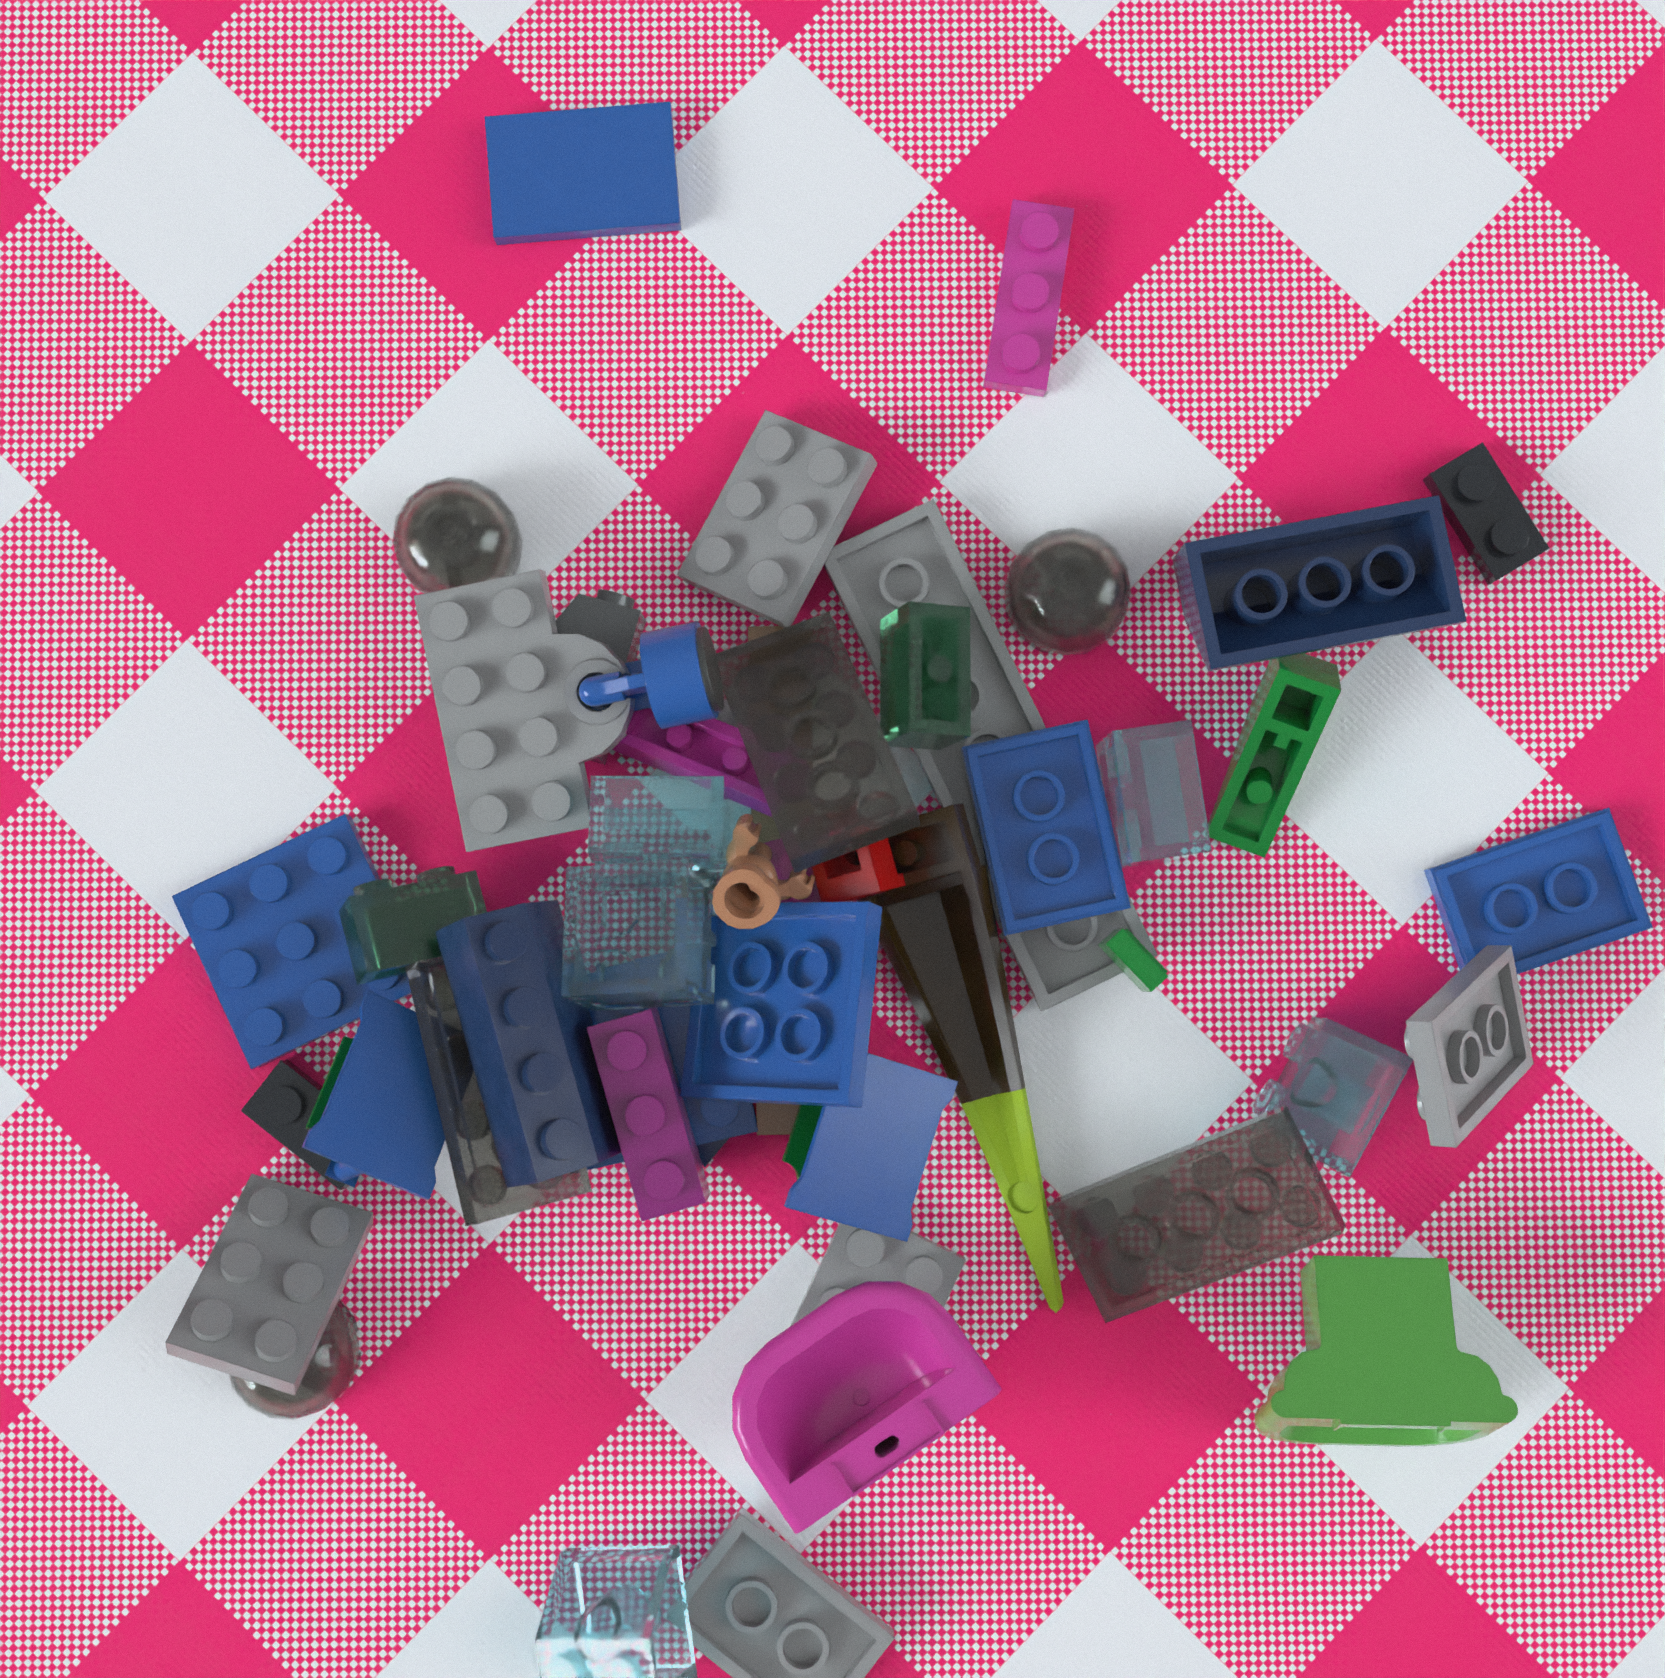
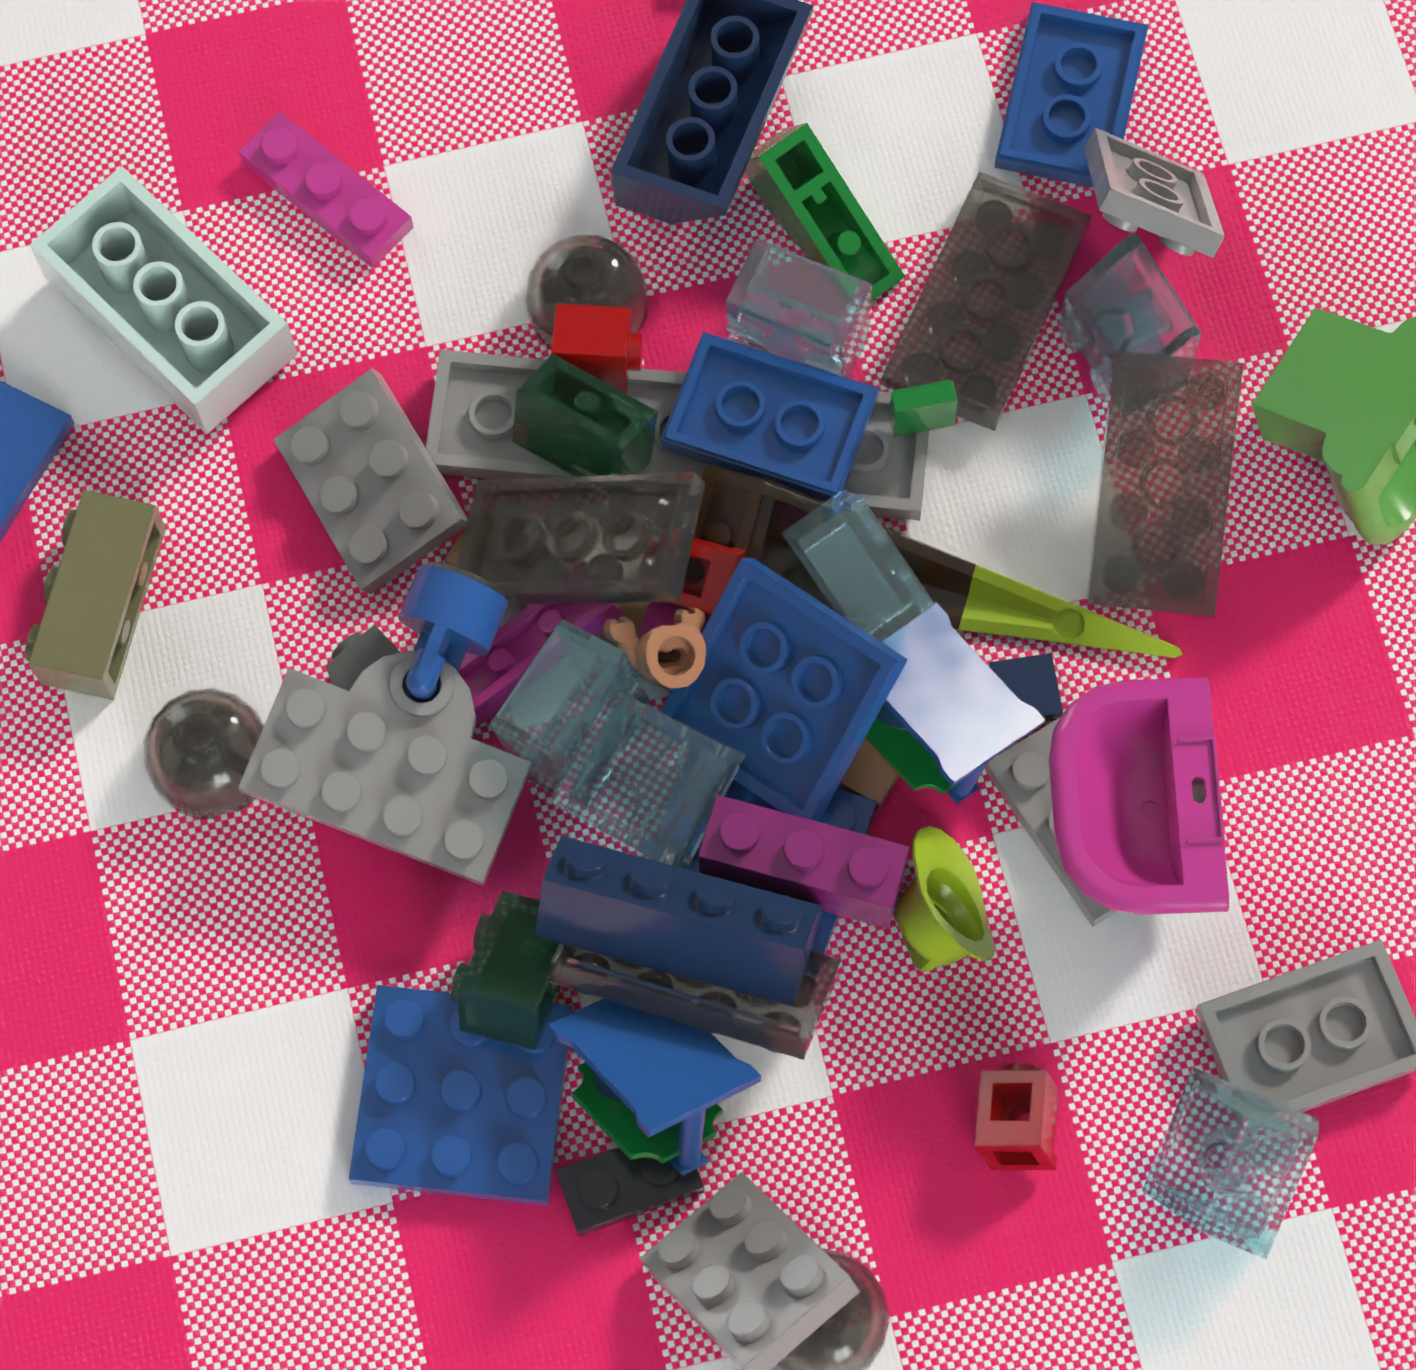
camera: 55 degrees left, 15 degrees down
(529, 1410) = (1002, 1099): none -> red brick
(531, 355) = (95, 594): none -> olive brick
(697, 1247) = (943, 905): none -> lime piece
(826, 229) = (164, 299): none -> light aqua brick
(935, 1000) = (858, 566): none -> clear light blue piece
(943, 1197) = (1033, 682): none -> dark blue tile
(1011, 636) = (598, 341): none -> red brick
(1285, 945) = (988, 297): none -> clear smoke plate

